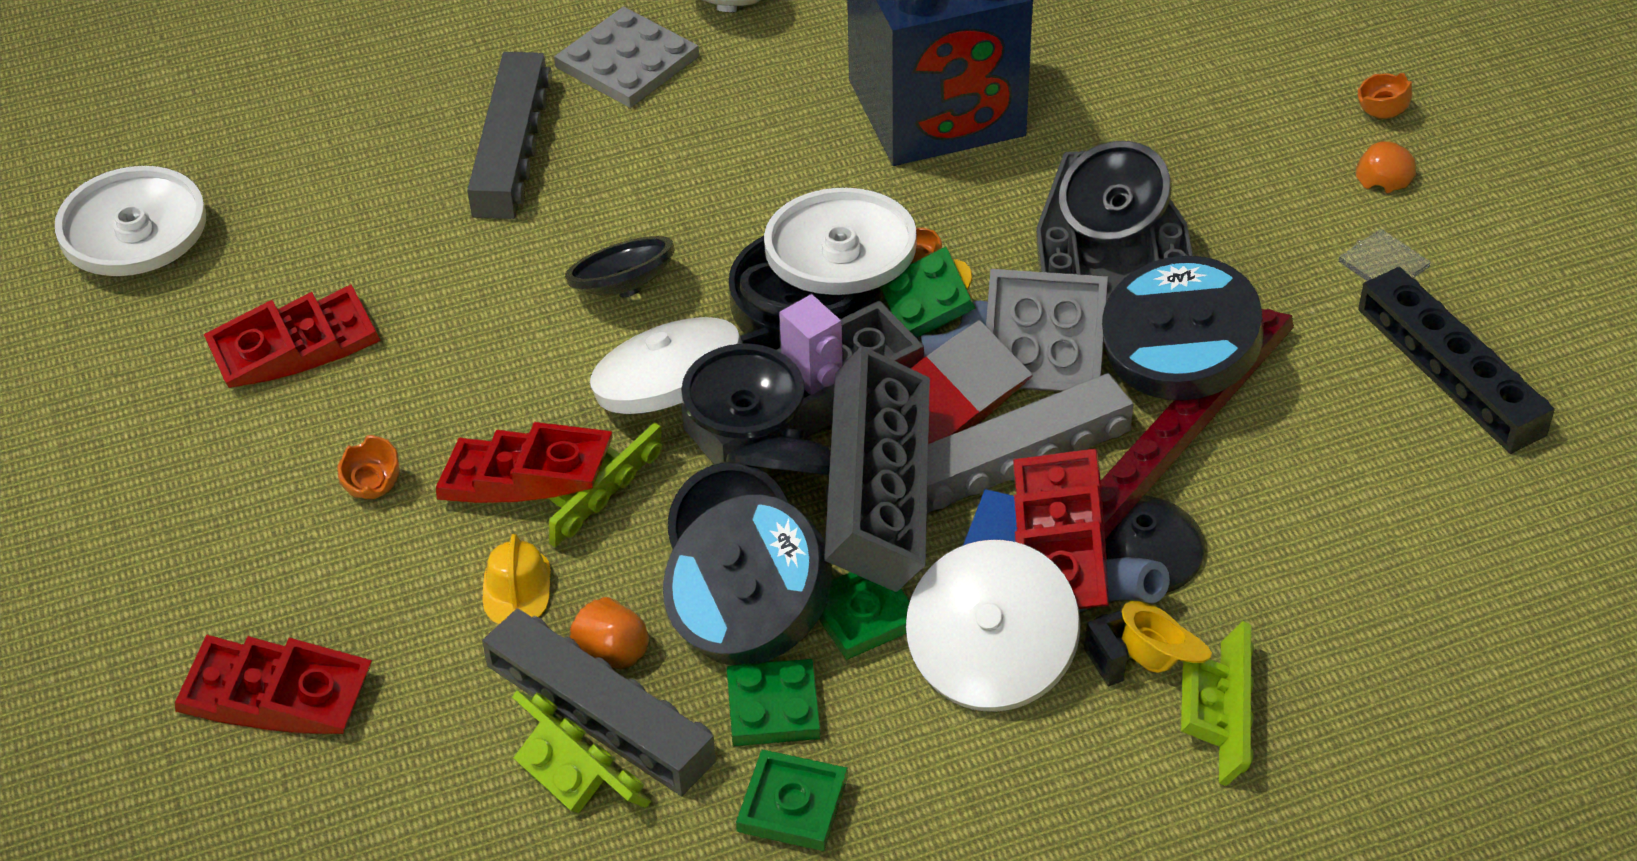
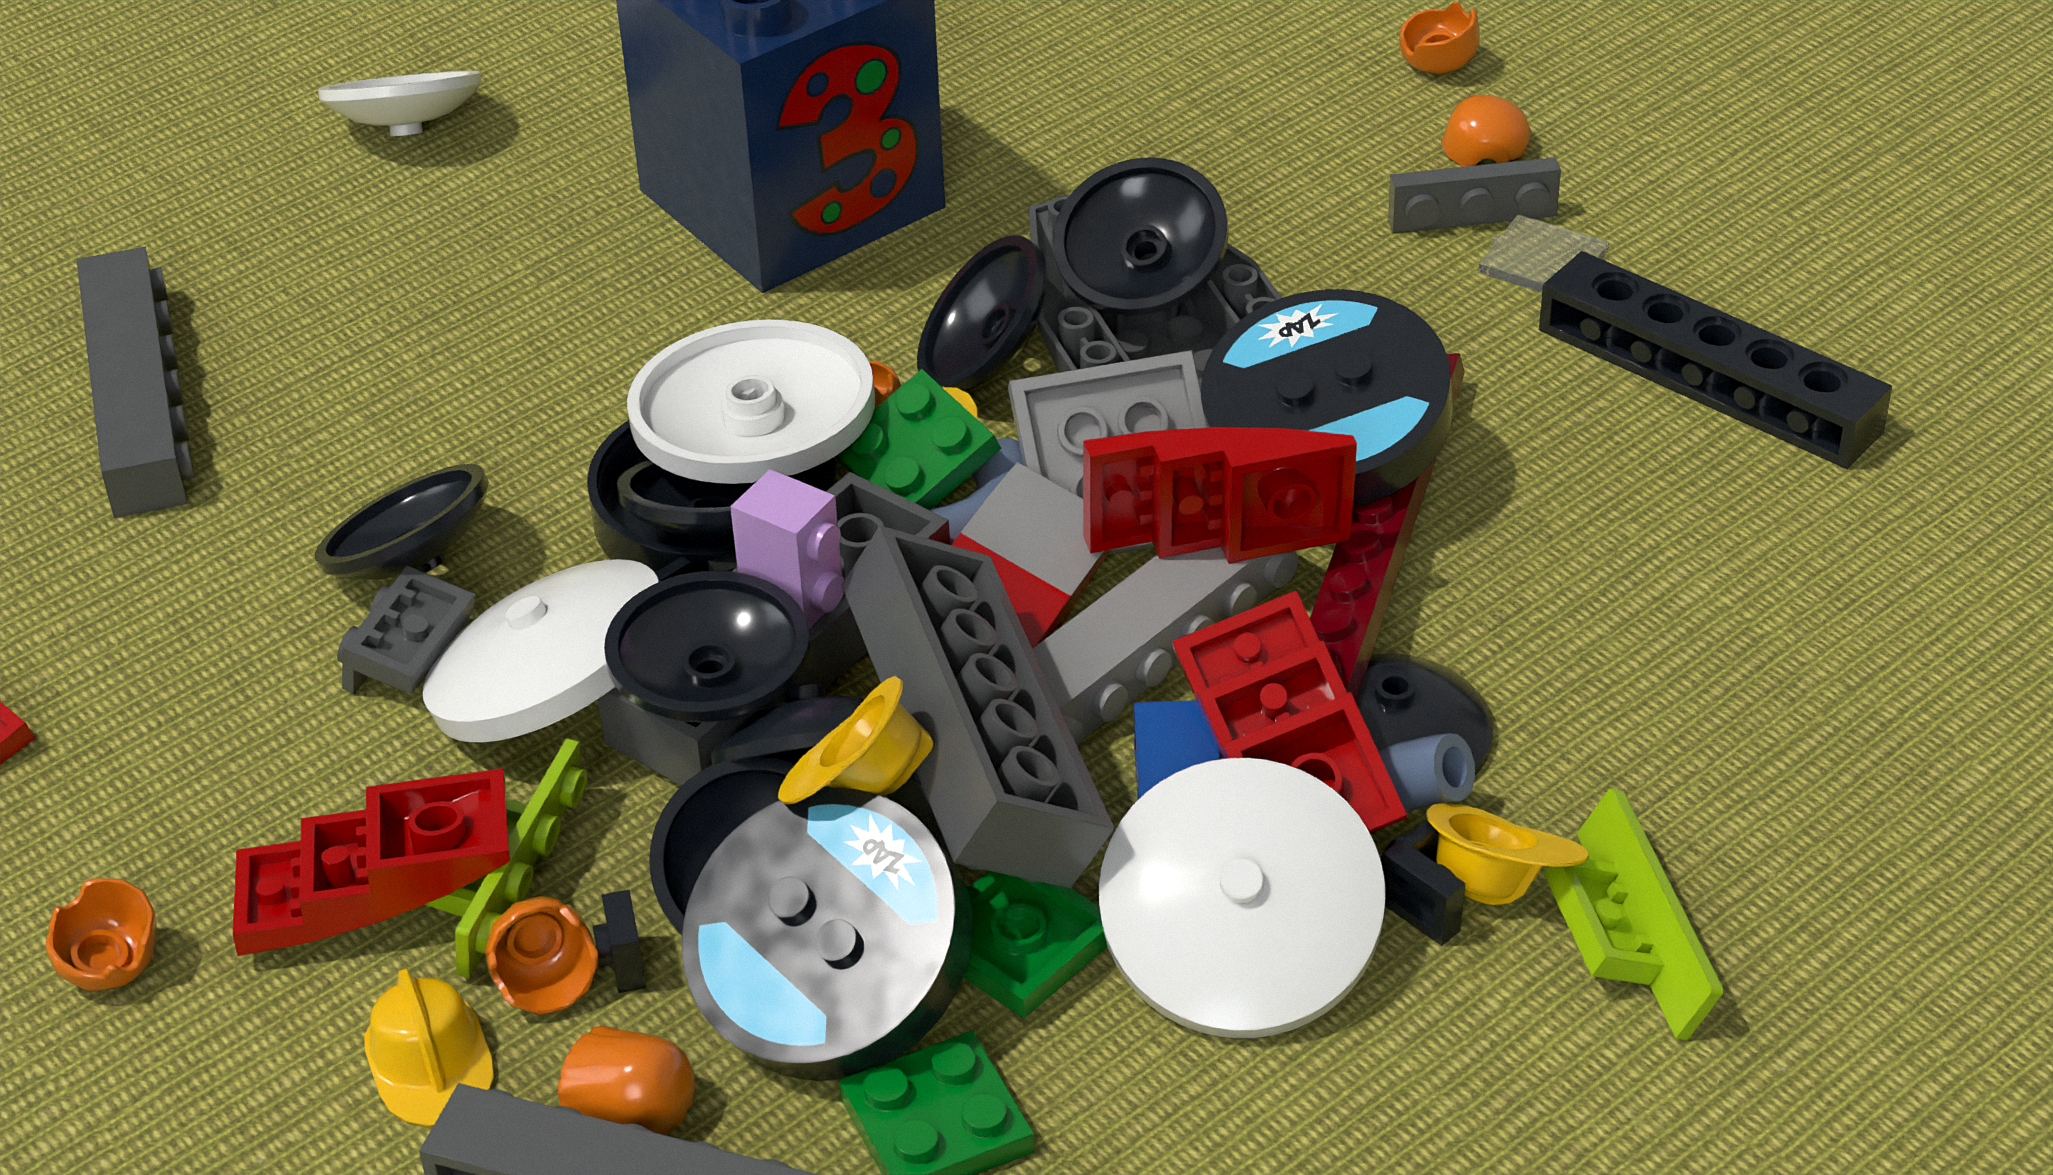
camera: 20 degrees left, 5 degrees down
(593, 546) = (541, 955): none -> orange hair
(597, 331) = (404, 631): none -> dark grey bracket
(626, 56) = (274, 230): light grey plate -> none
(641, 550) = (619, 941): none -> black plate
(800, 482) = (866, 752): none -> yellow piece
(1006, 219) = (984, 314): none -> black dish
(1085, 371) = (1219, 488): none -> red slope
(1355, 209) = (1473, 195): none -> dark grey plate

